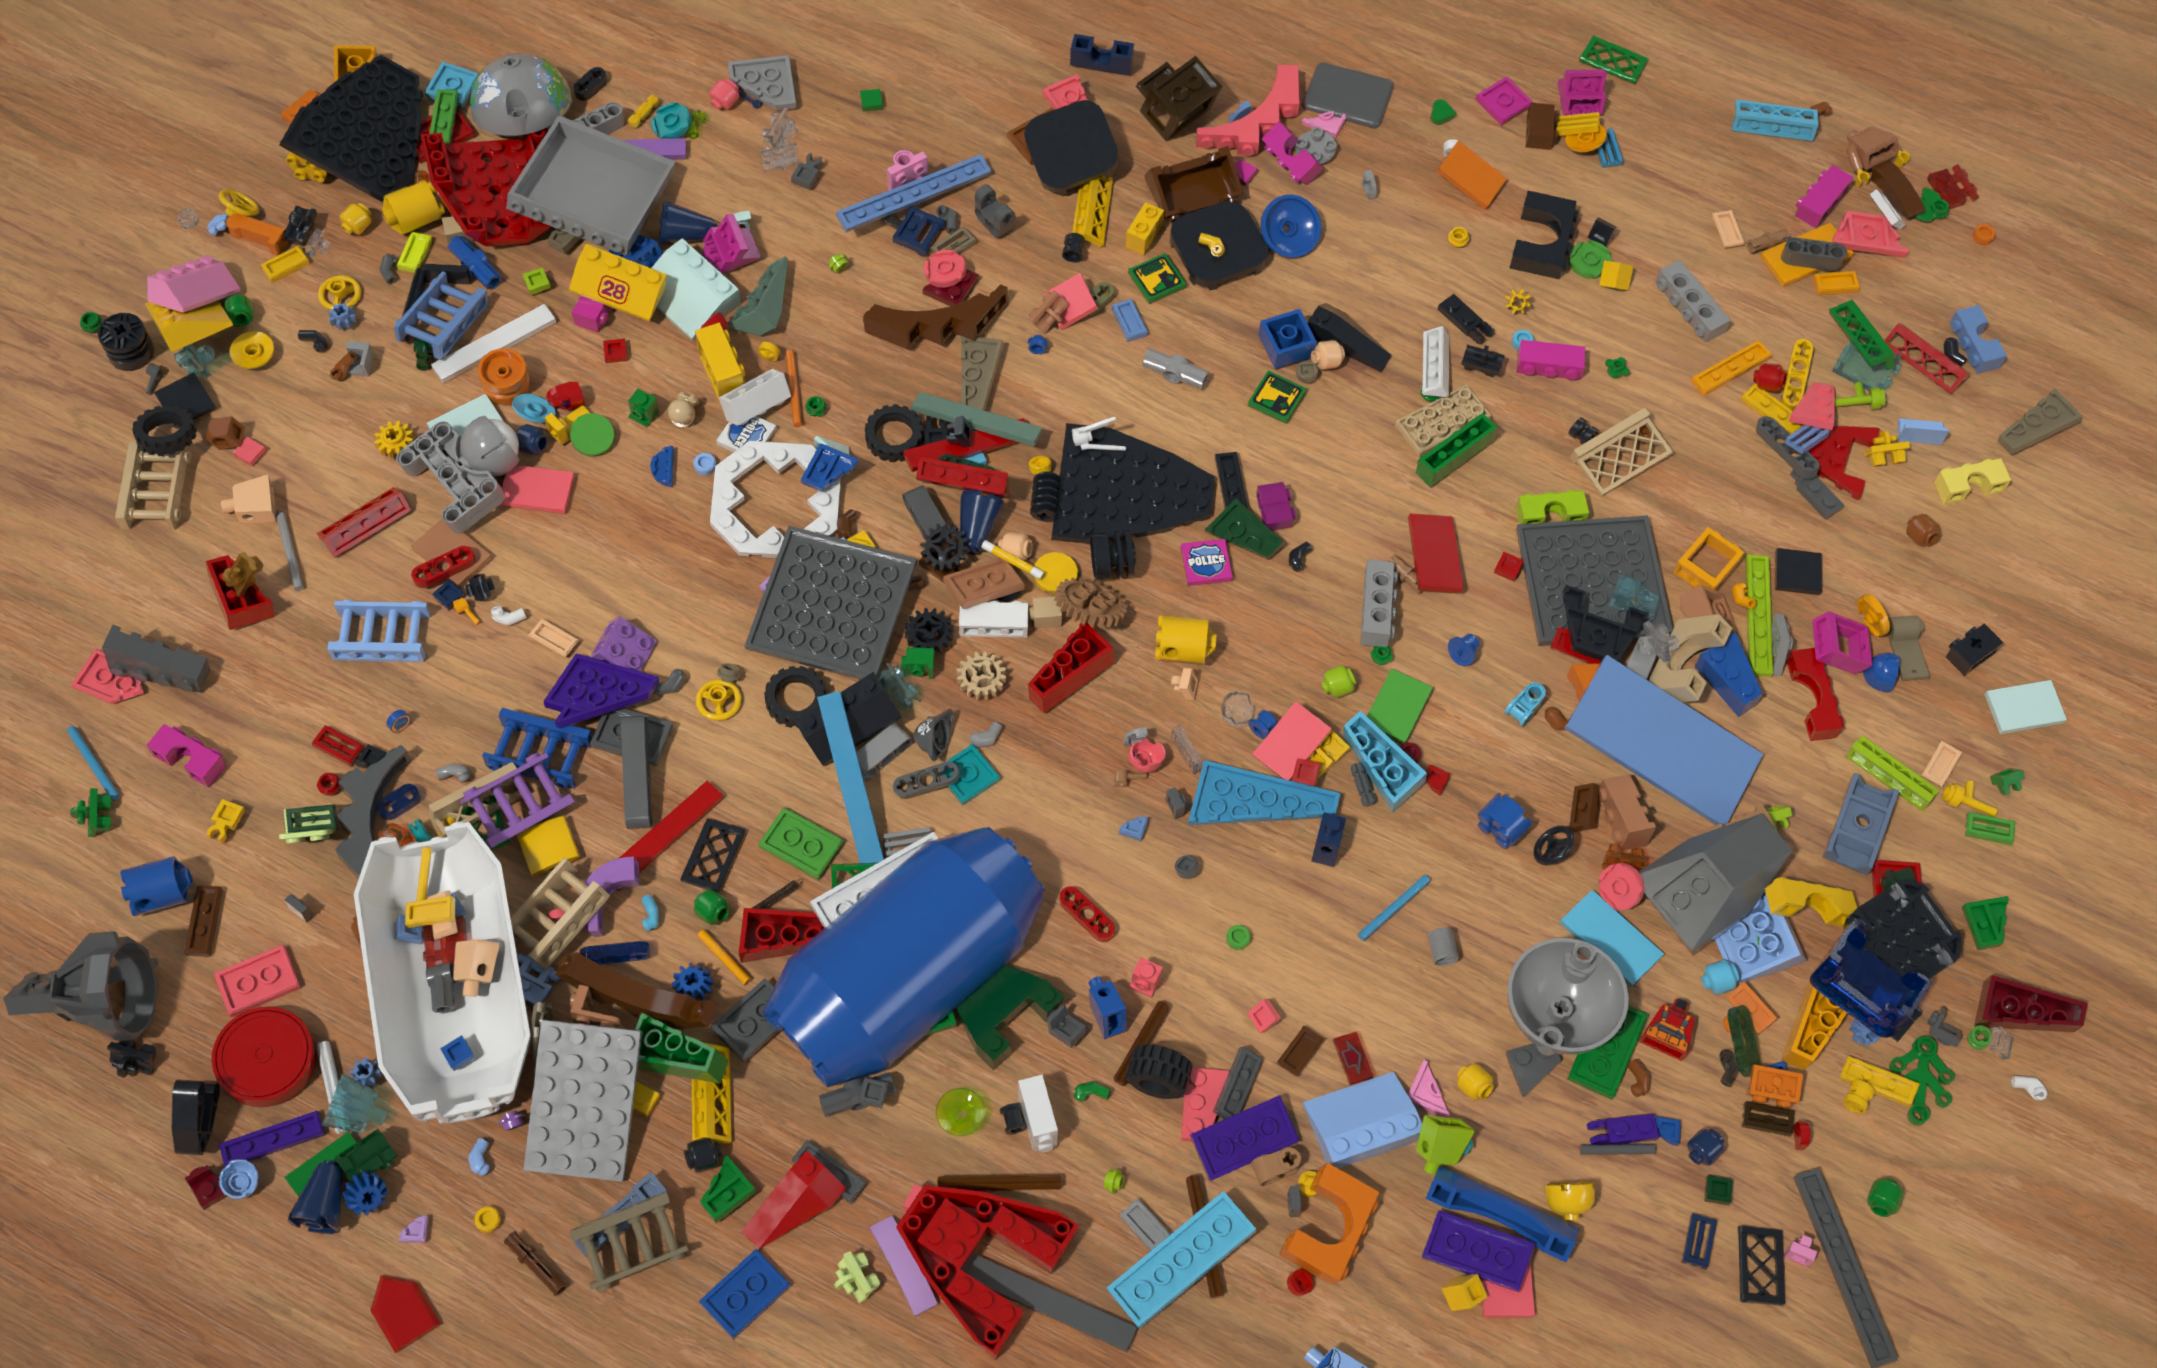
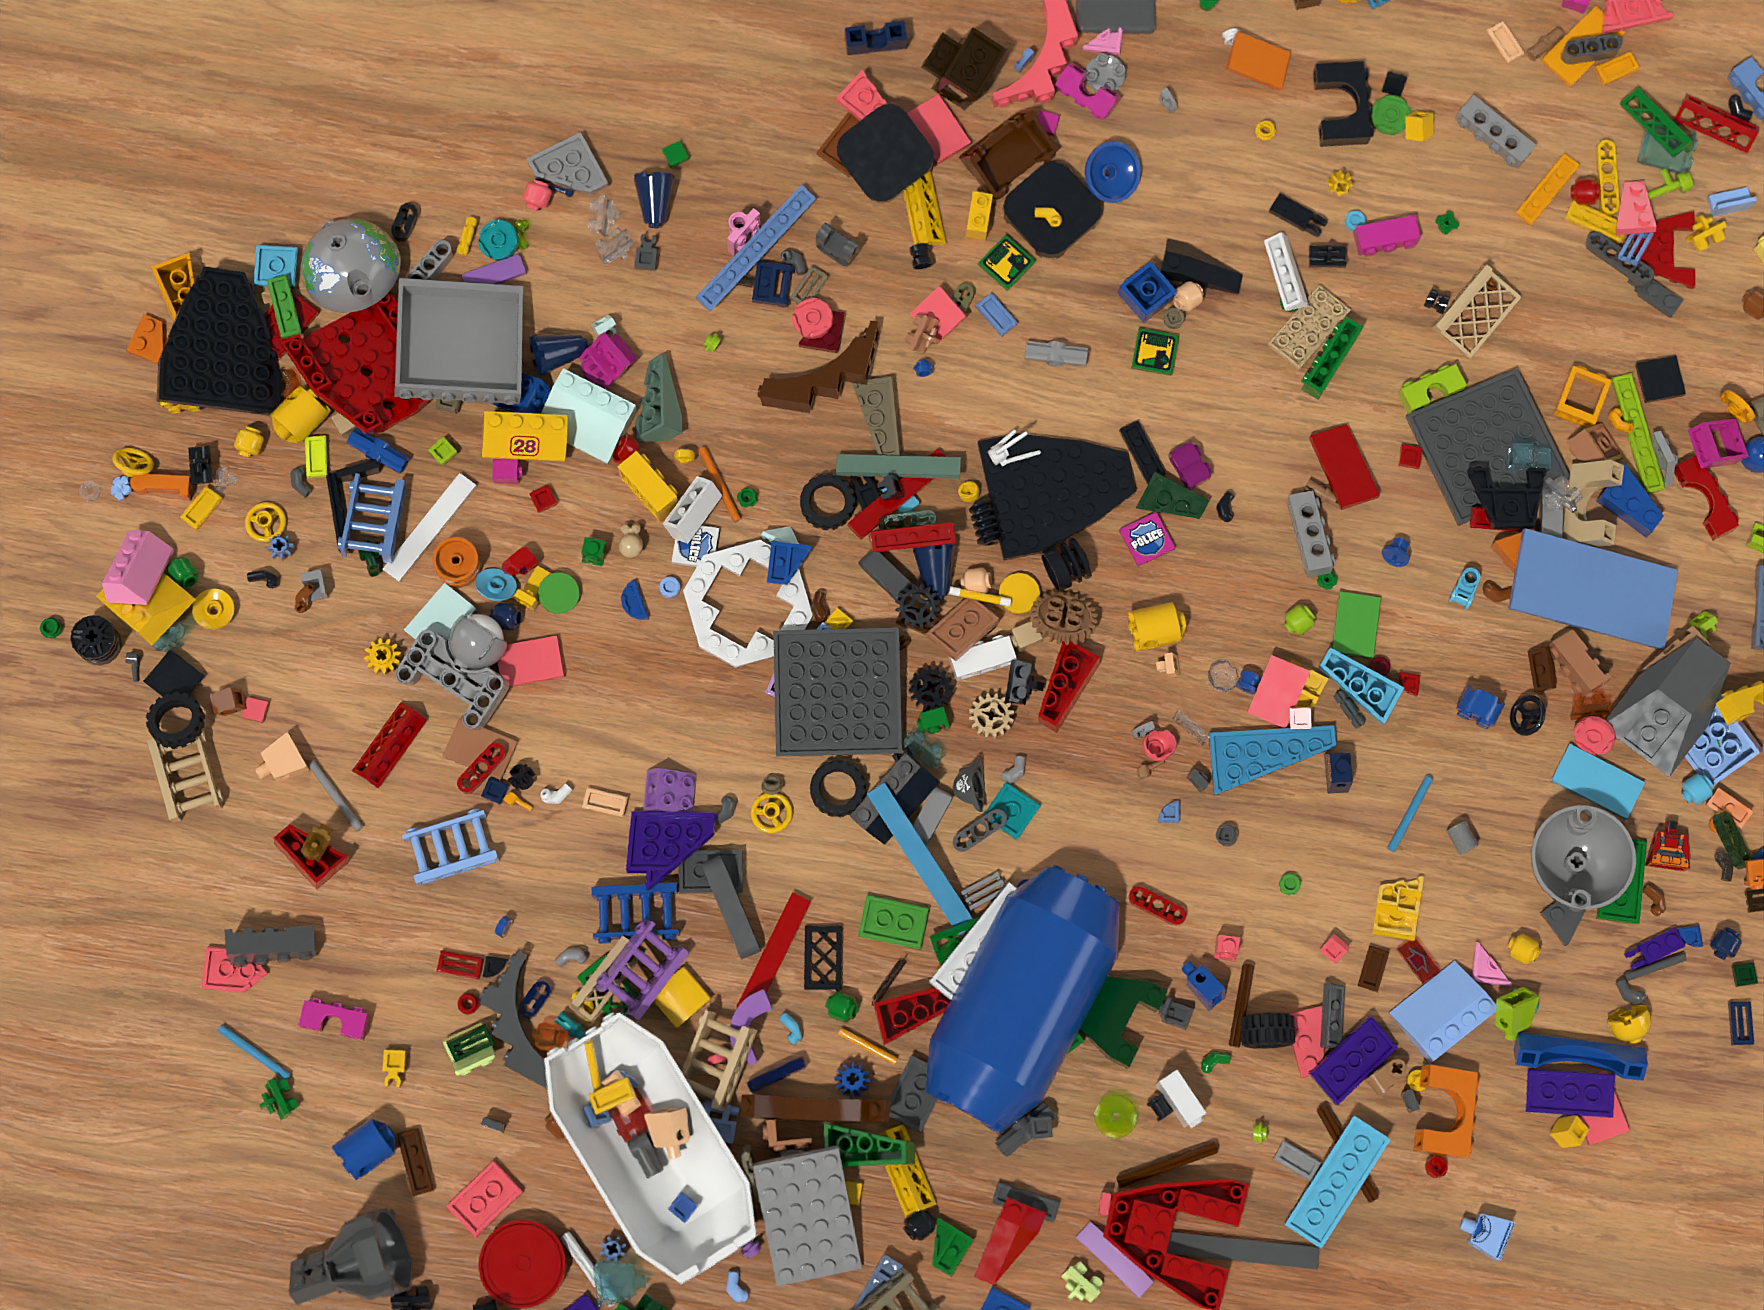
camera: 20 degrees left, 15 degrees up
(835, 122) = (654, 196): none -> dark blue cone
(1023, 651) = (1021, 682): none -> black hinge
(1135, 148) = (939, 128): none -> coral tile
(1348, 998) = (1398, 909): none -> yellow slope
(1579, 1168) = (1630, 995): none -> dark grey arm

